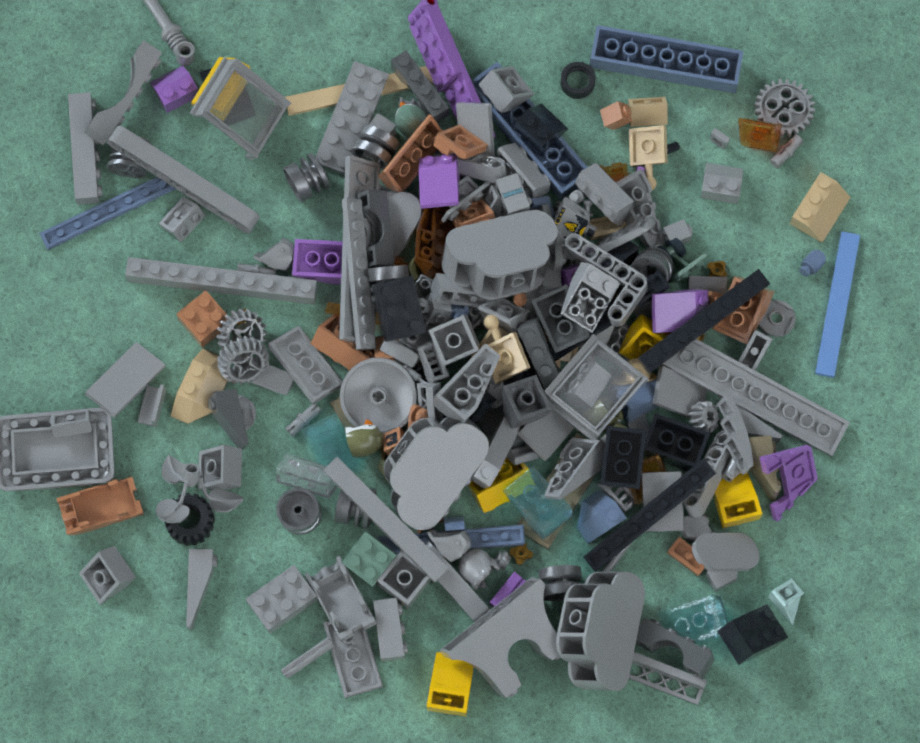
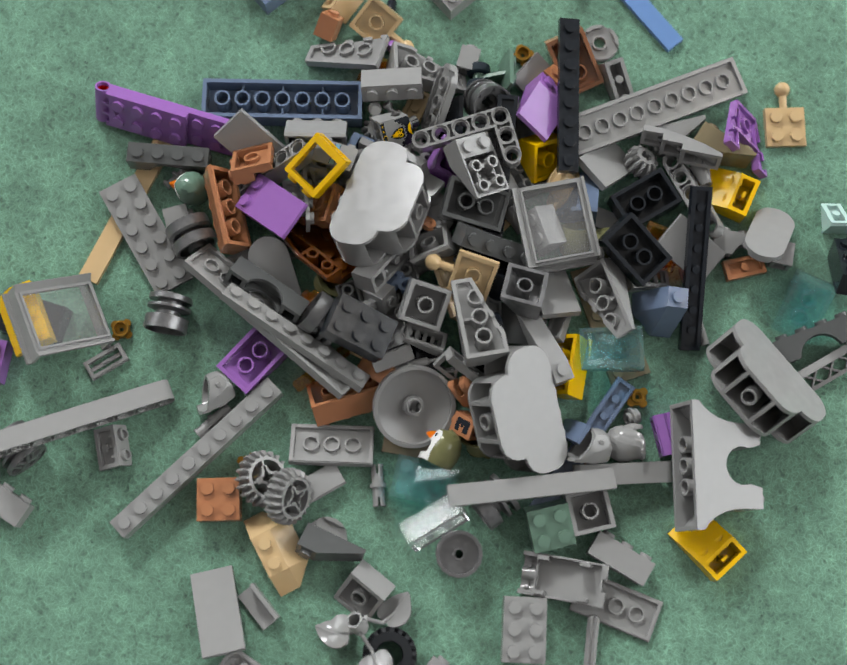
camera: 55 degrees left, 5 degrees up
(105, 212) = (48, 510): sand blue tile -> none
(236, 172) = (108, 369): none -> light grey tile
(270, 162) = (117, 325): none -> pearl gold plate
(505, 88) = (234, 89): light grey slope -> none
(510, 192) = (341, 160): none -> yellow window
(540, 127) = (292, 90): black slope -> none
(559, 580) = (690, 383): flat silver wheel -> none
(578, 93) = (271, 46): black tyre -> none
(605, 147) = (350, 54): none -> light grey wing
(831, 504) = (784, 125): none -> tan plate

